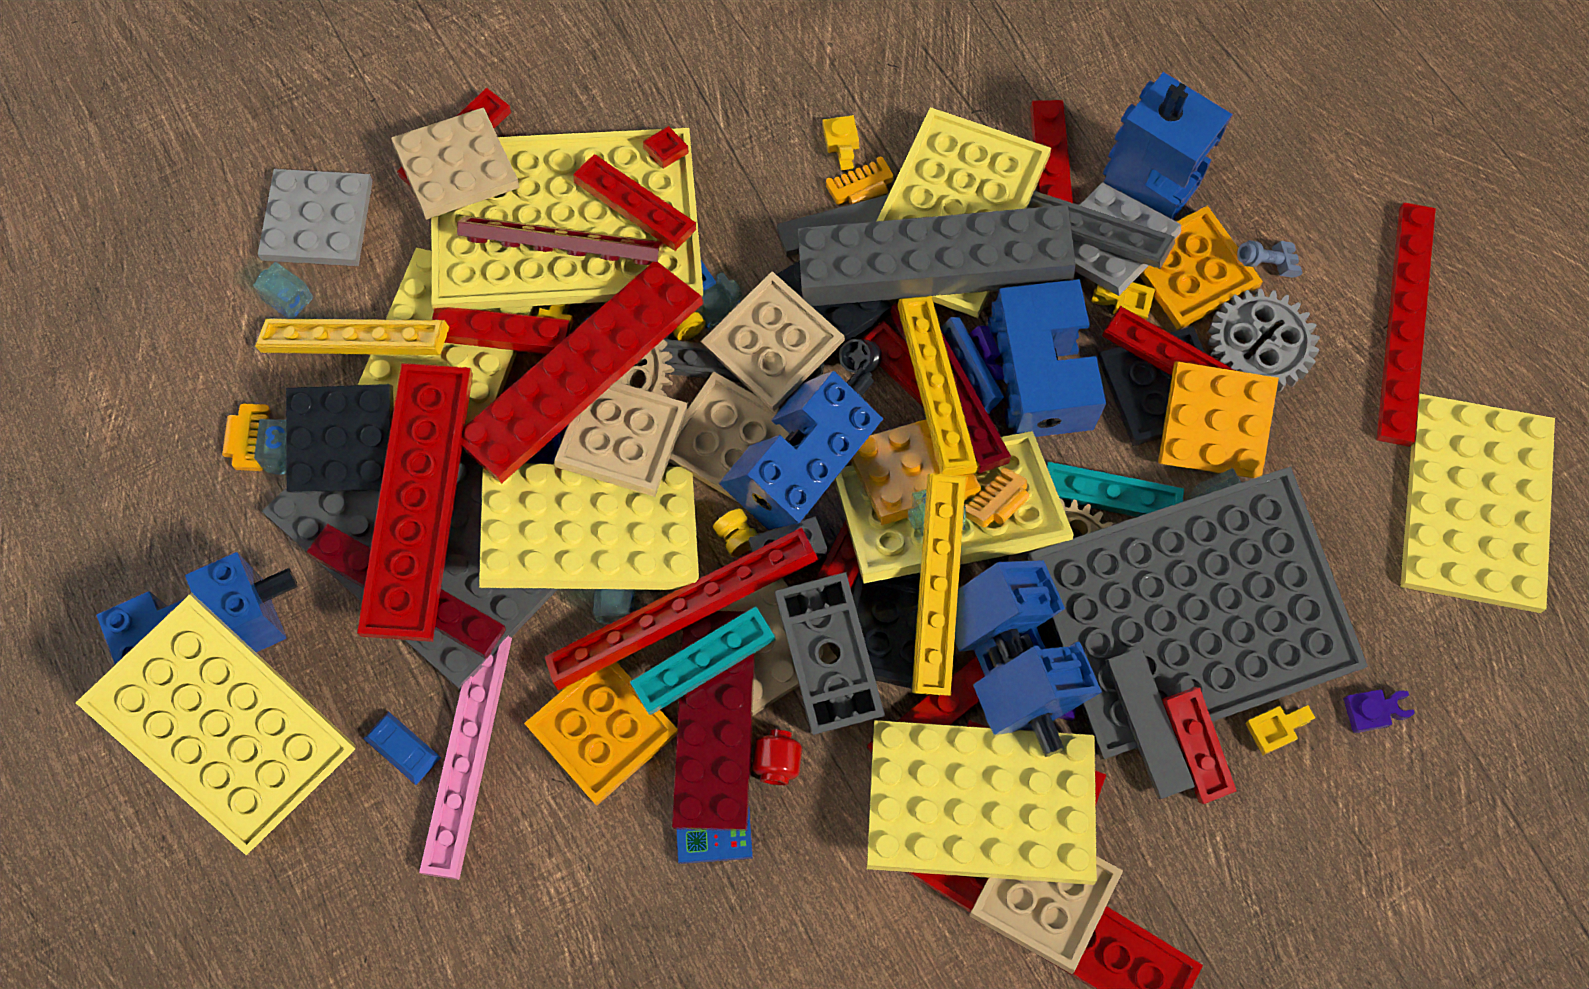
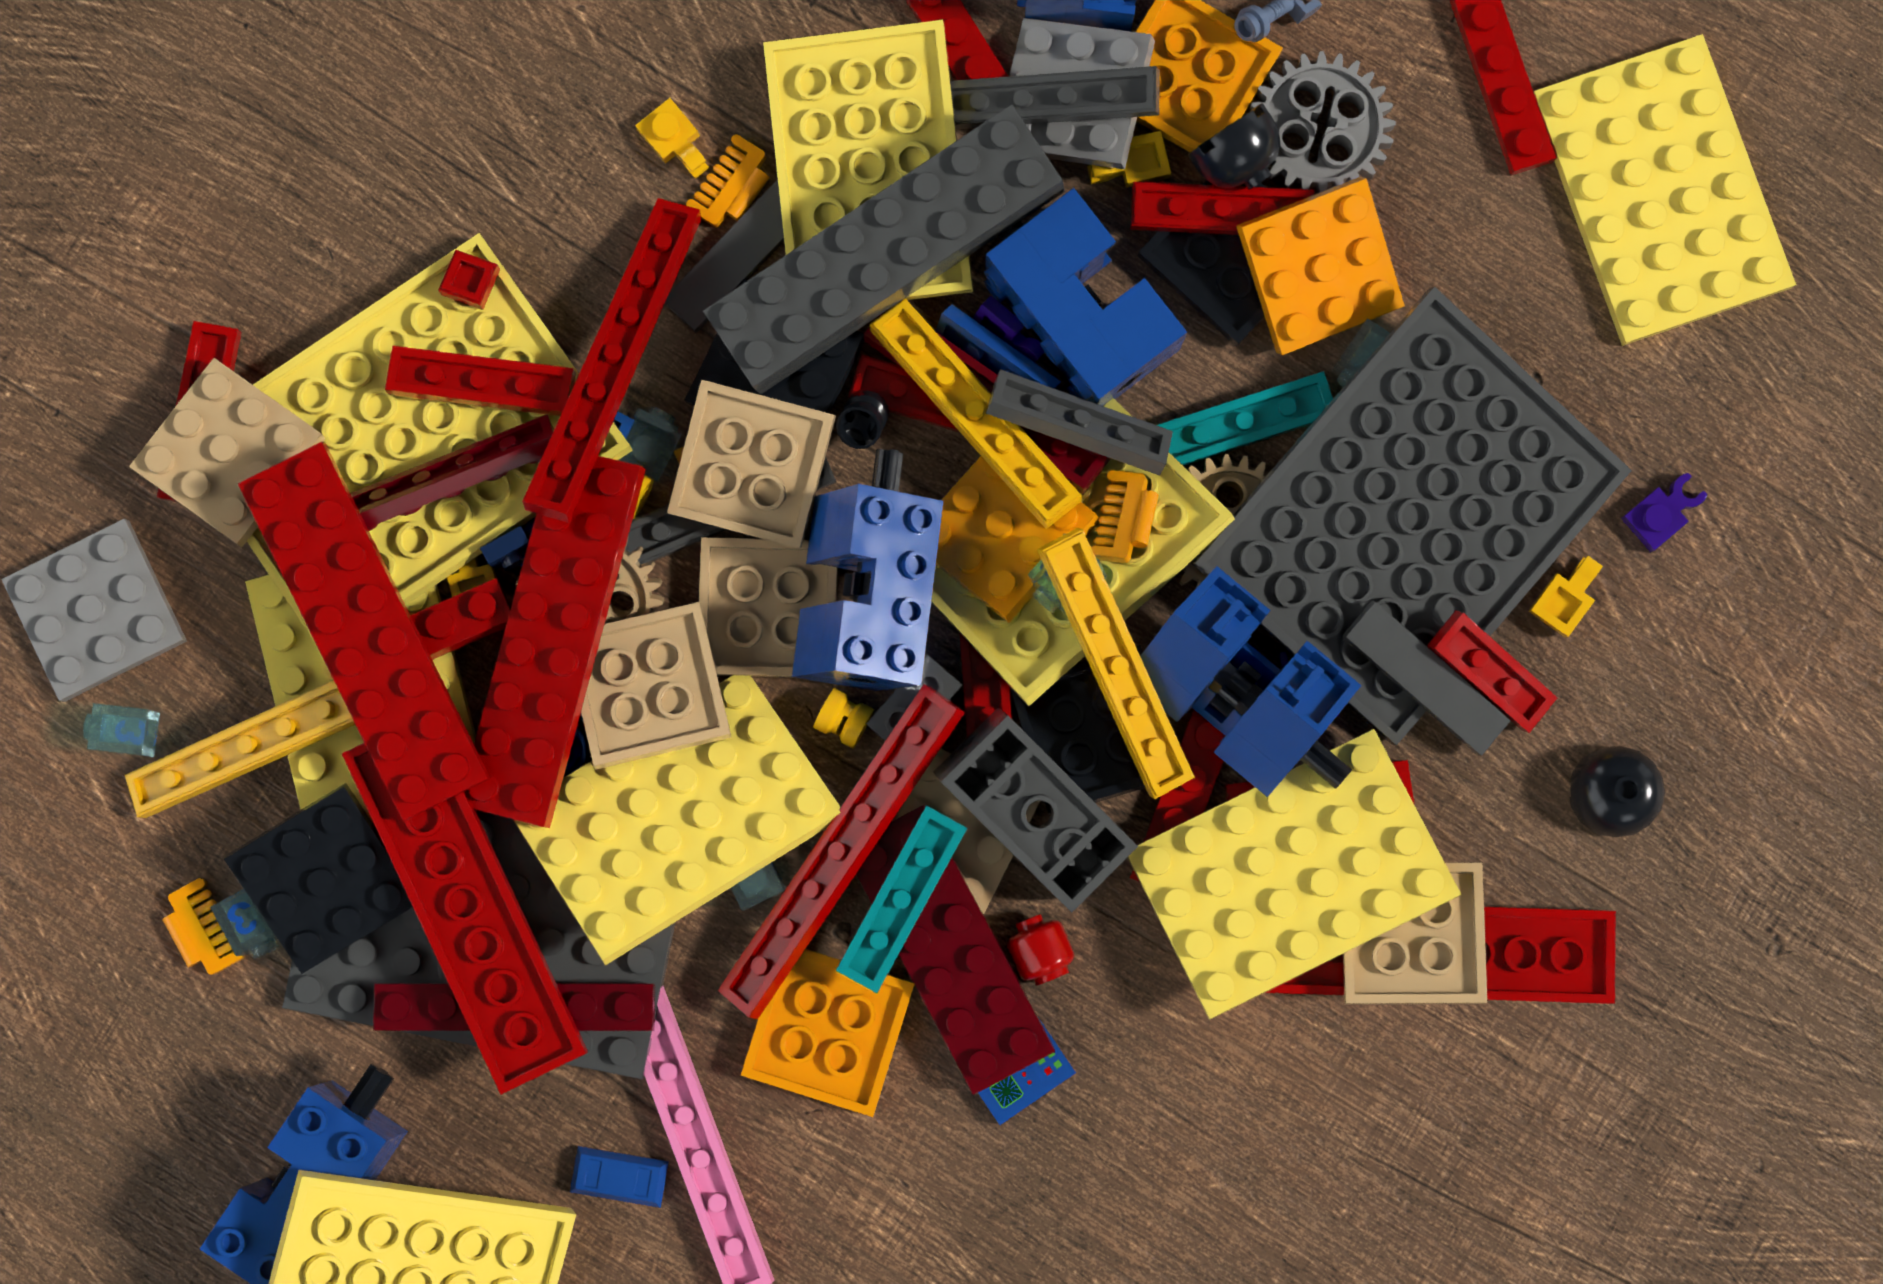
camera: 25 degrees left, 15 degrees up
(463, 299) = (364, 631): none -> red plate
(584, 306) = (507, 550): none -> dark blue plate
(720, 231) = (612, 361): none -> red plate
(1002, 423) = (1079, 422): none -> dark grey plate
(1201, 317) = (1239, 151): none -> black cylinder
(1246, 882) = (1616, 791): none -> black cylinder

